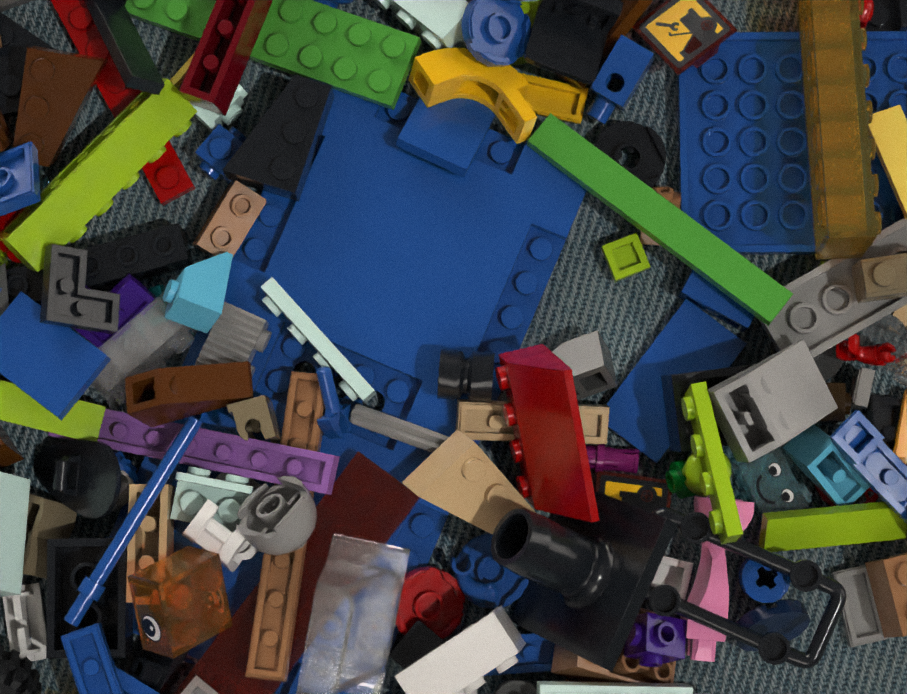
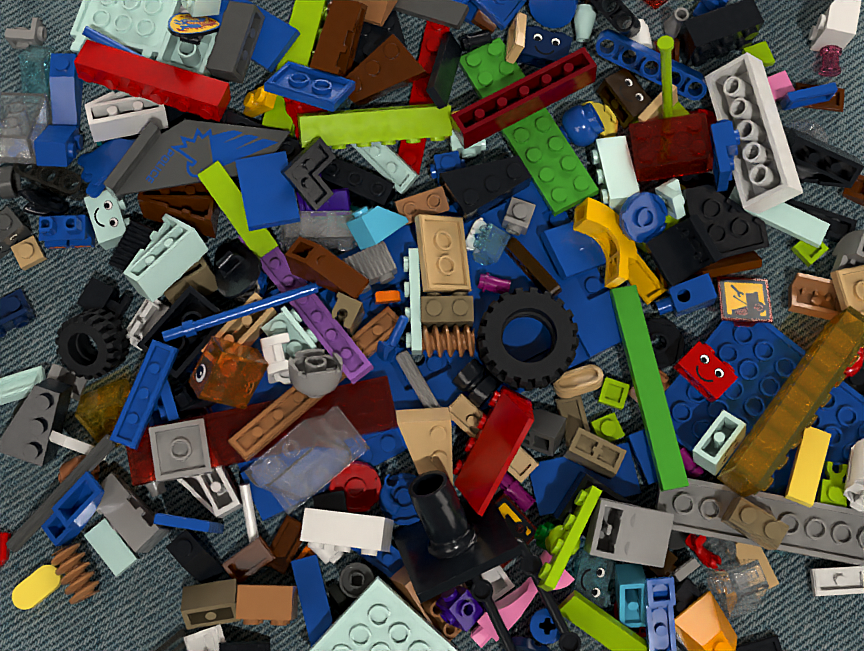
camera: 35 degrees right, 5 degrees down
(153, 205) = (389, 165): none -> light aqua tile
(282, 362) = (386, 297): none -> orange tile
(304, 259) = (442, 254): none -> tan tile
(316, 194) = (473, 231): none -> white piece
(348, 204) = (489, 244): none -> clear light blue brick
(353, 144) = (518, 216): none -> light grey bracket
(364, 321) = (447, 310): none -> dark tan brick
(390, 246) = (493, 284): none -> magenta pin
(394, 354) = (448, 340): none -> medium nougat piece
(418, 191) = (531, 267): none -> dark brown beam
(481, 227) = (534, 306): none -> black tyre
(575, 276) = (579, 381): none -> tan tile
(617, 330) = (575, 416): none -> dark tan tile
(651, 303) = (607, 428): none -> lime plate
(661, 343) = (595, 453): none -> dark tan hinge
(708, 148) = (706, 371): none -> red brick
(775, 267) = (691, 468): none -> magenta pin
(787, 217) = (719, 442): none -> light aqua brick

